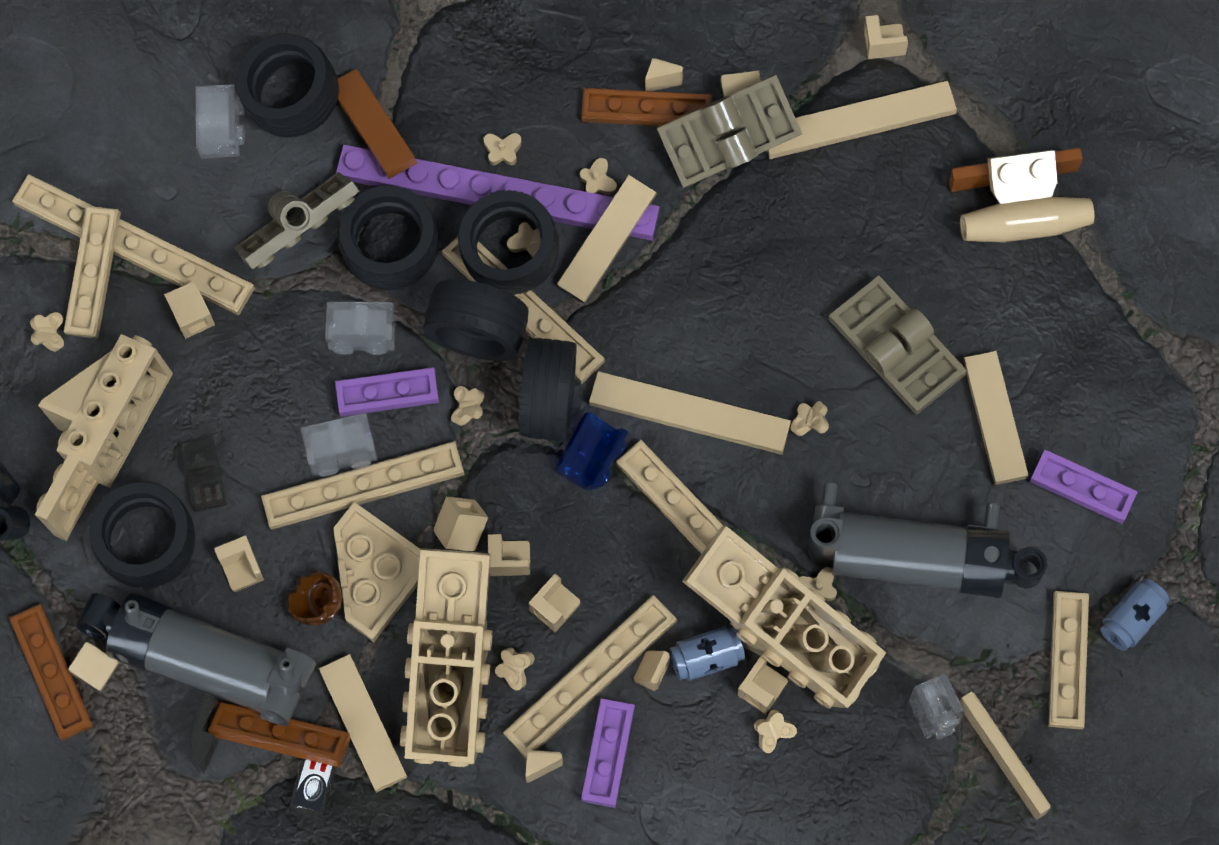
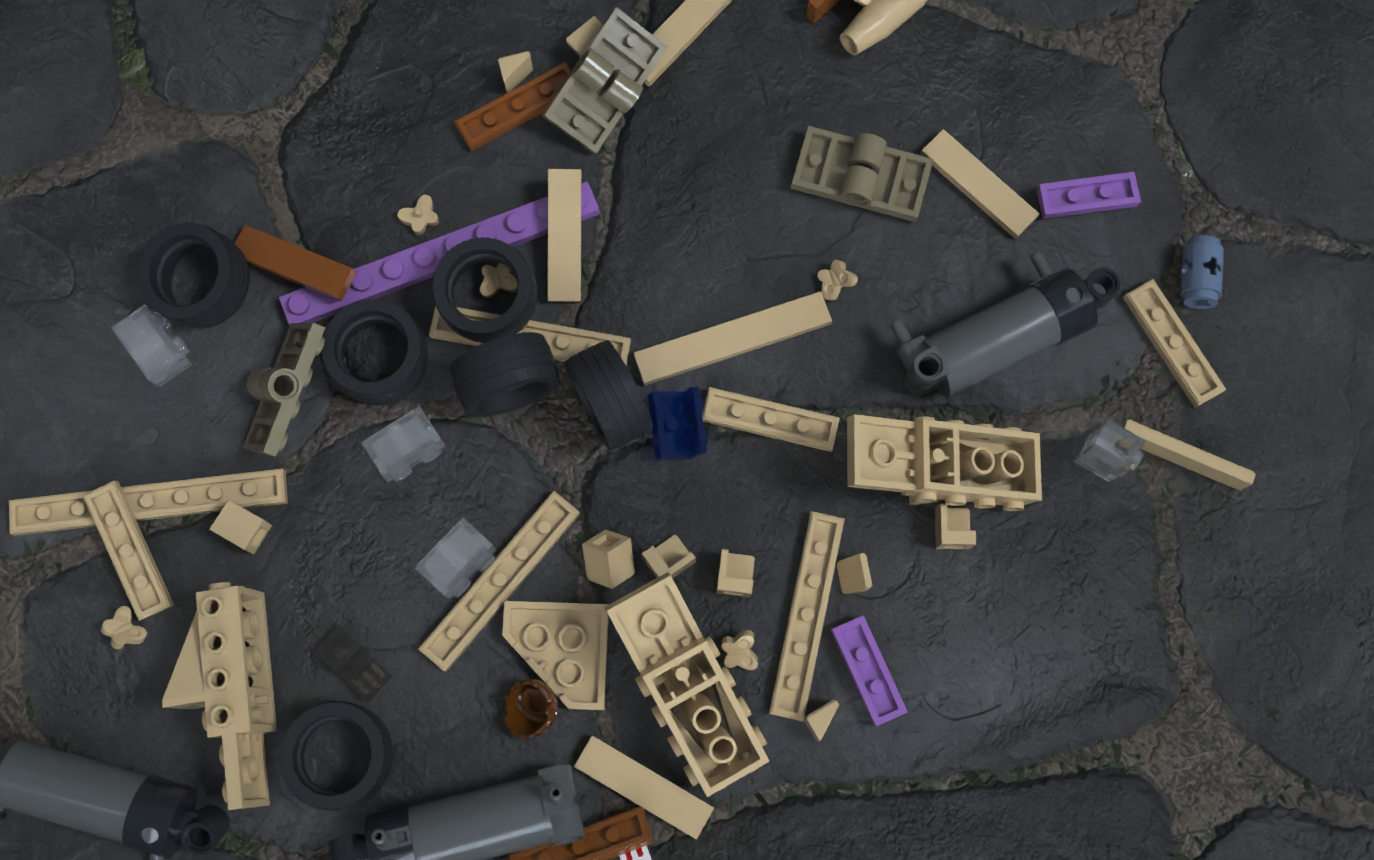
camera: 40 degrees left, 5 degrees up
(239, 564) = (440, 721): tan panel -> none
(387, 392) = (465, 486): medium lavender plate -> none
(469, 405) = (544, 452): tan piece -> none
(597, 180) = (518, 191): tan piece -> none
(722, 650) = (886, 548): sand blue piece -> none
(773, 729) = (987, 557): tan piece -> none
(821, 583) = (940, 409): tan piece -> none

